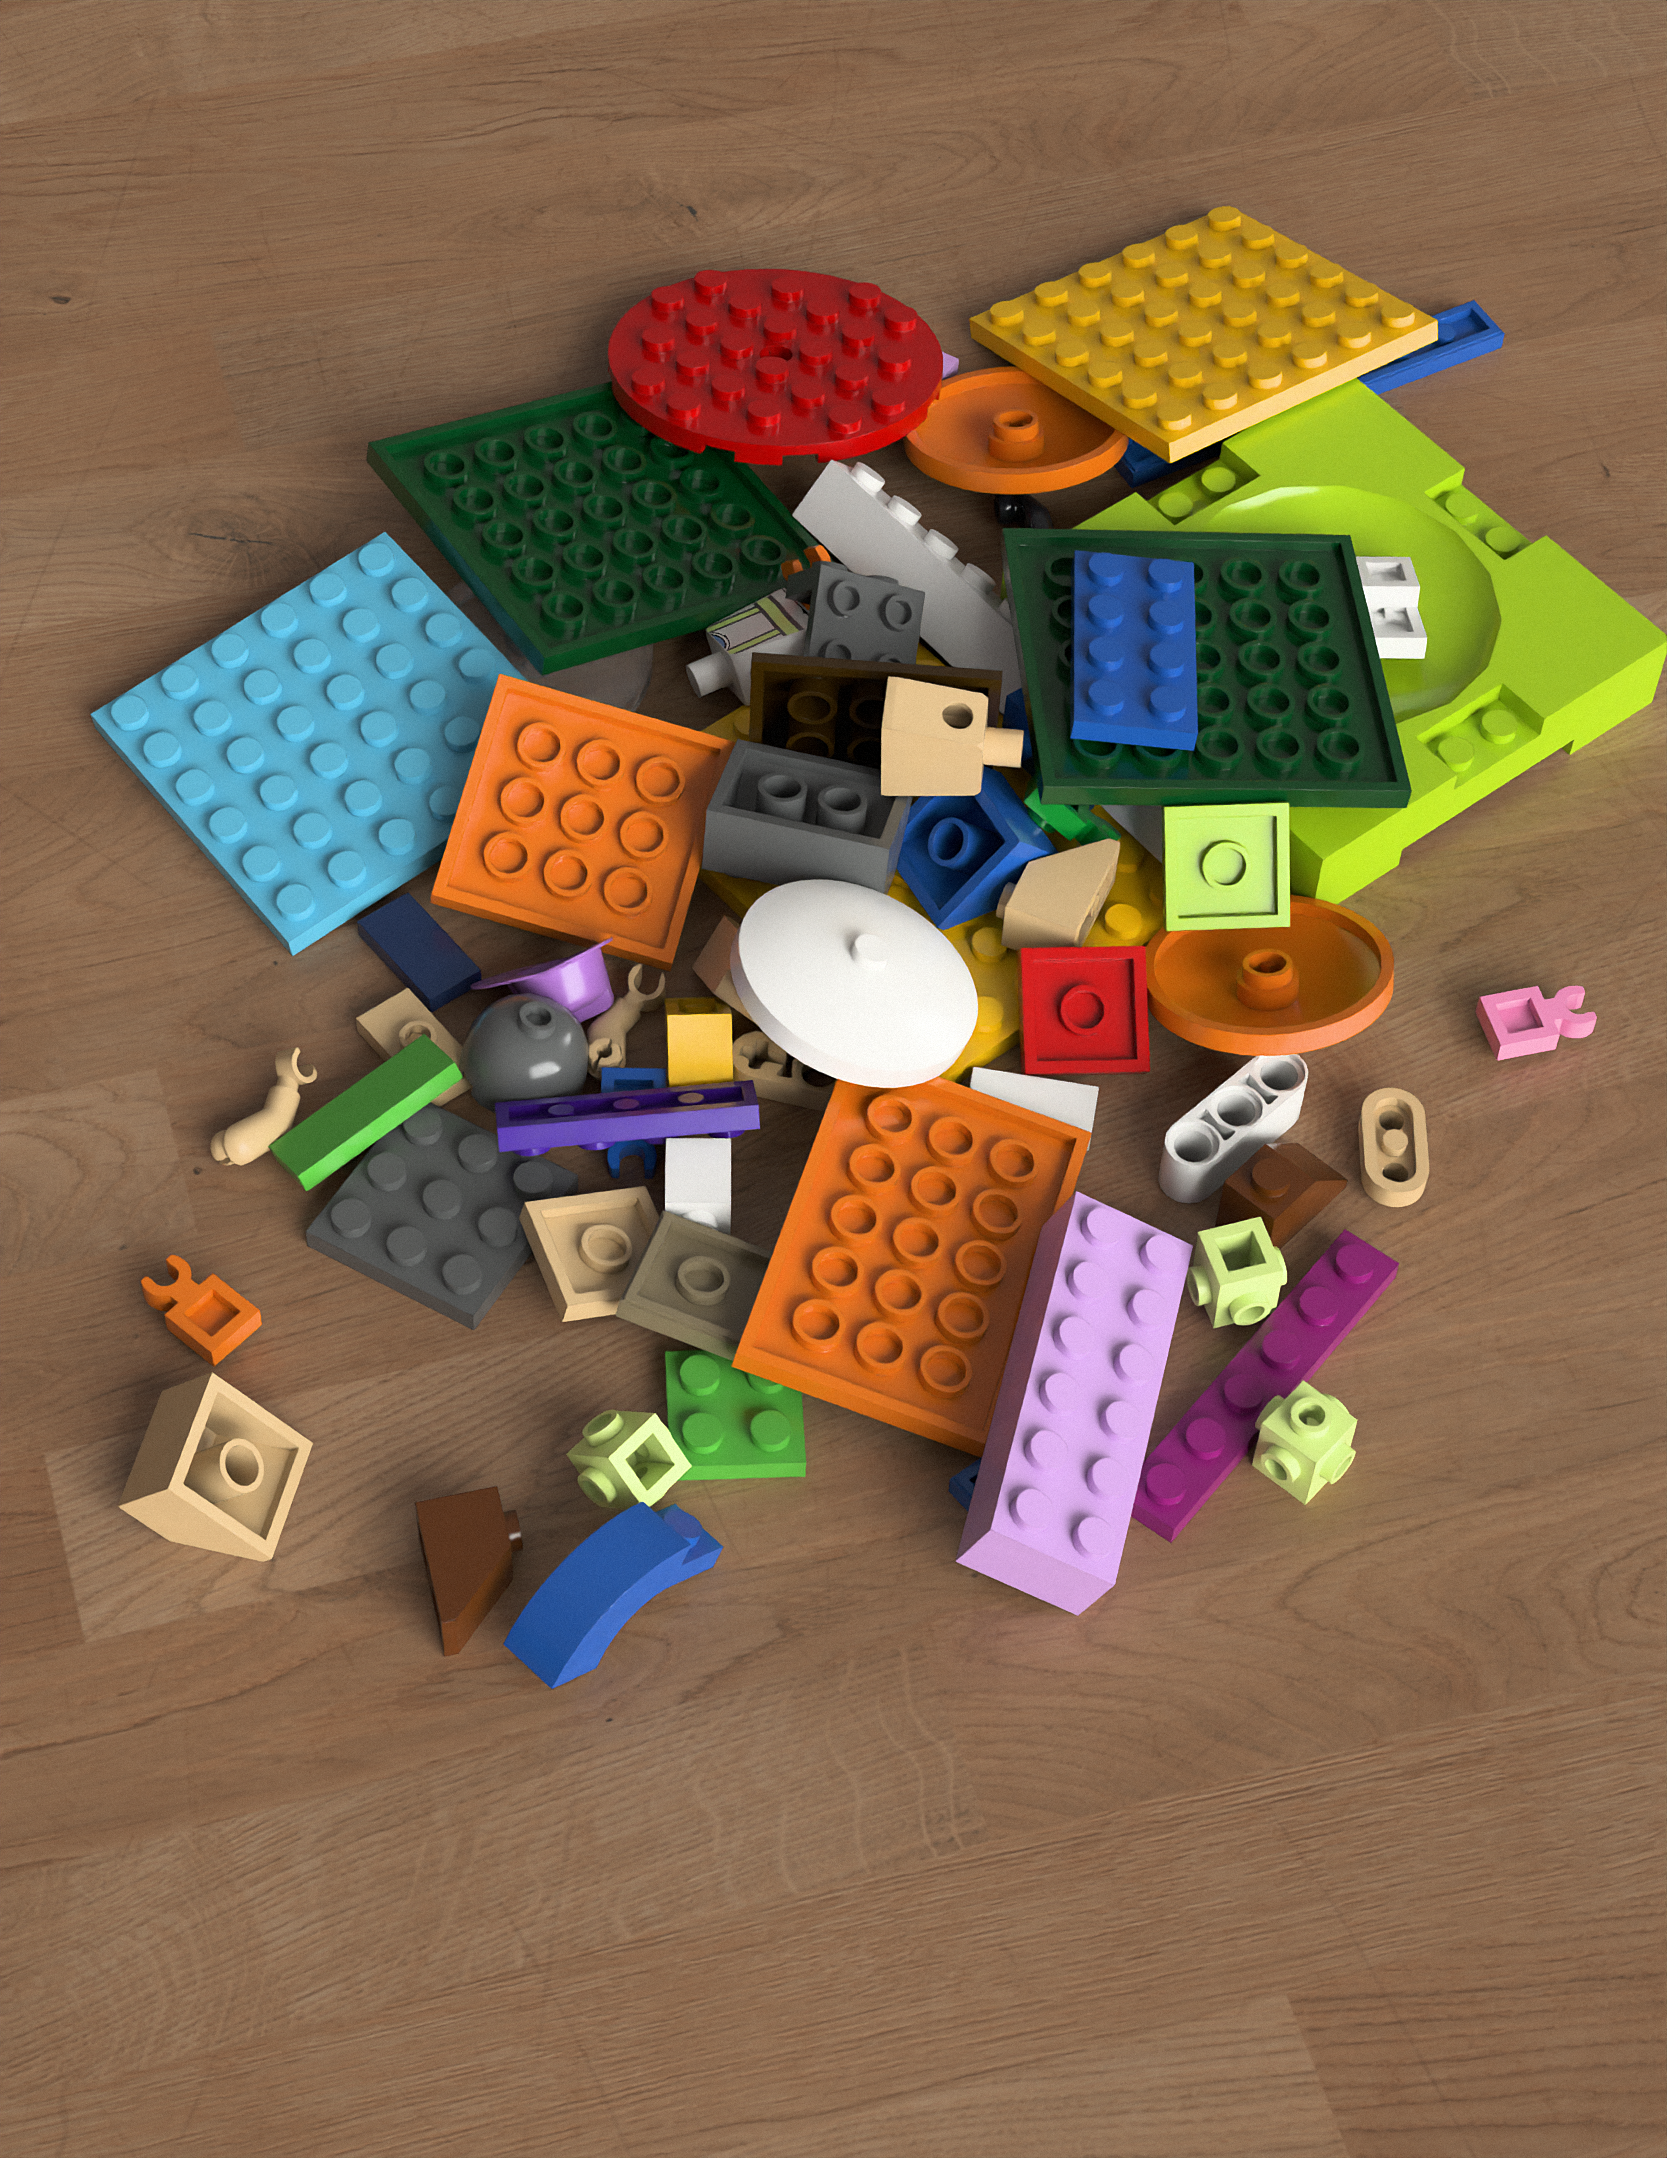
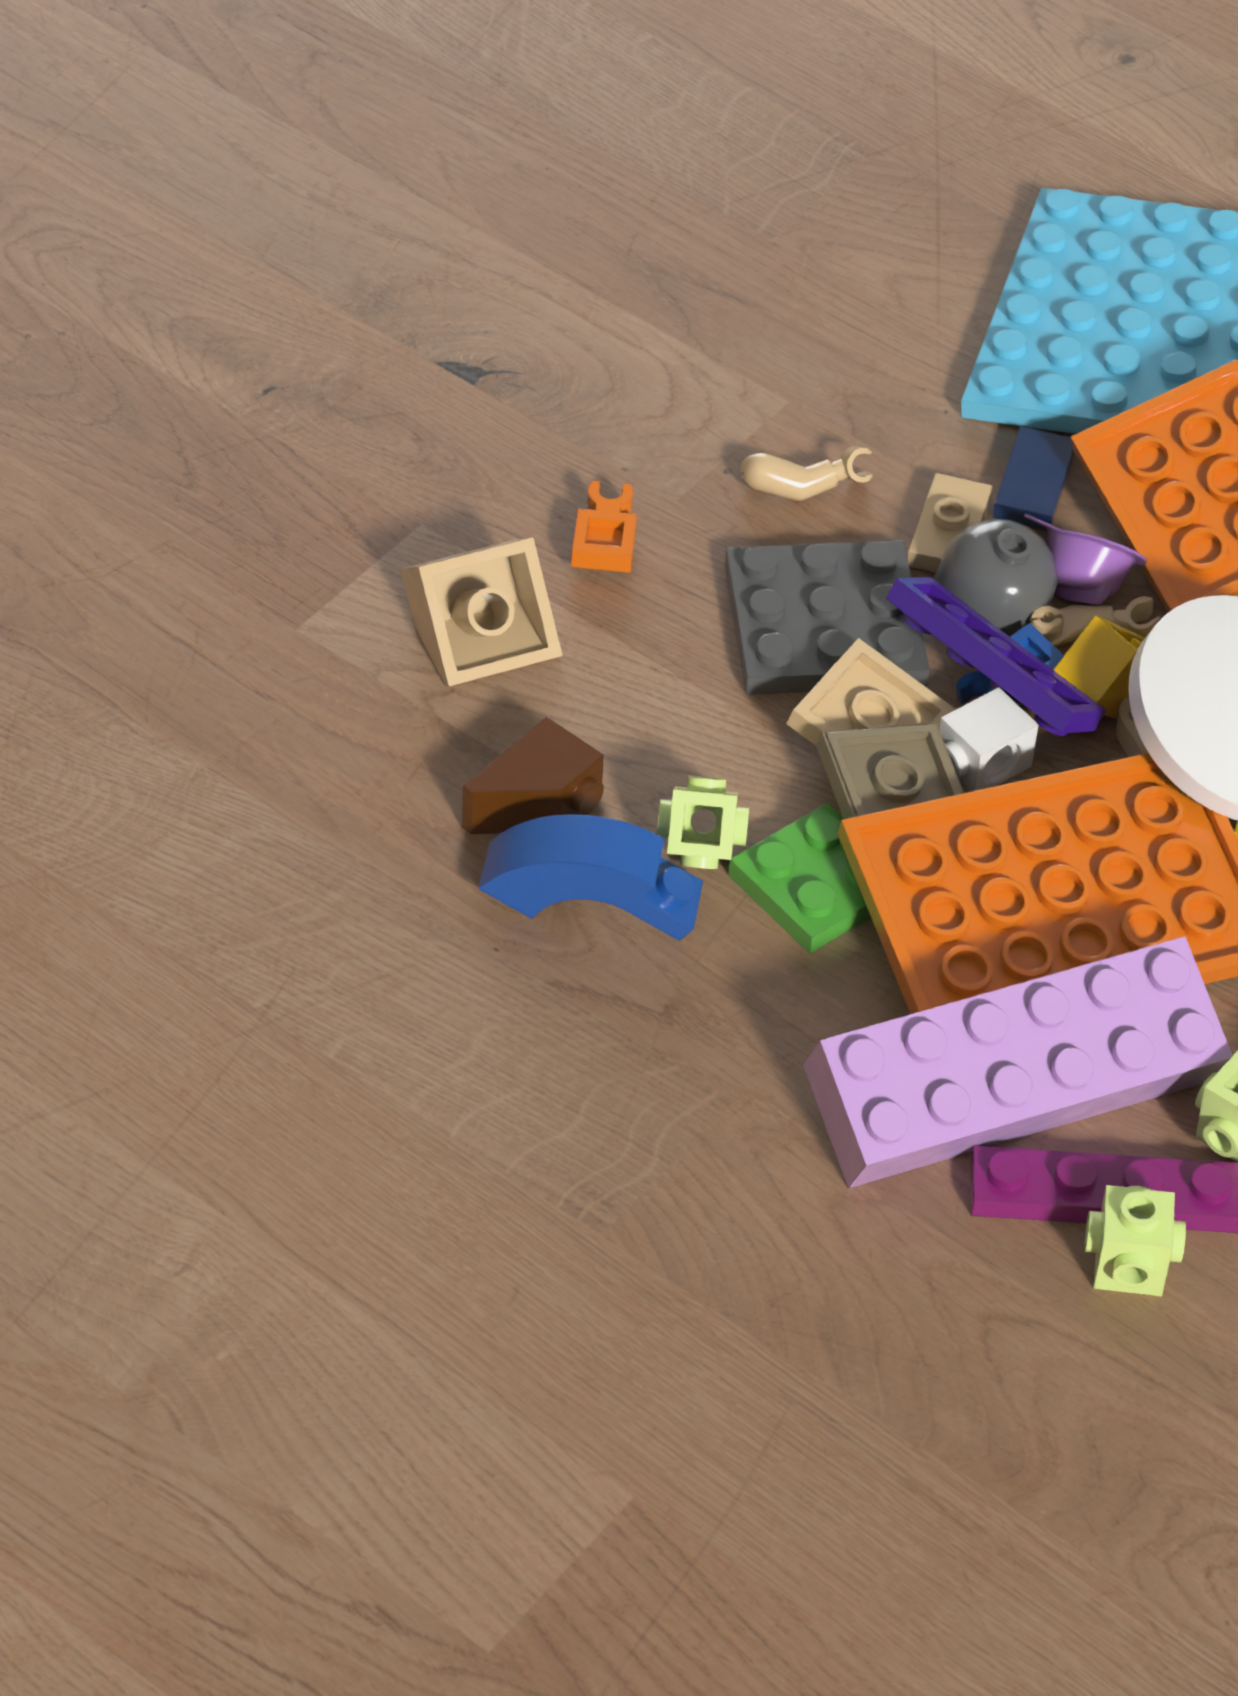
camera: 55 degrees right, 5 degrees down
(365, 1112) = (855, 519): bright green tile -> none

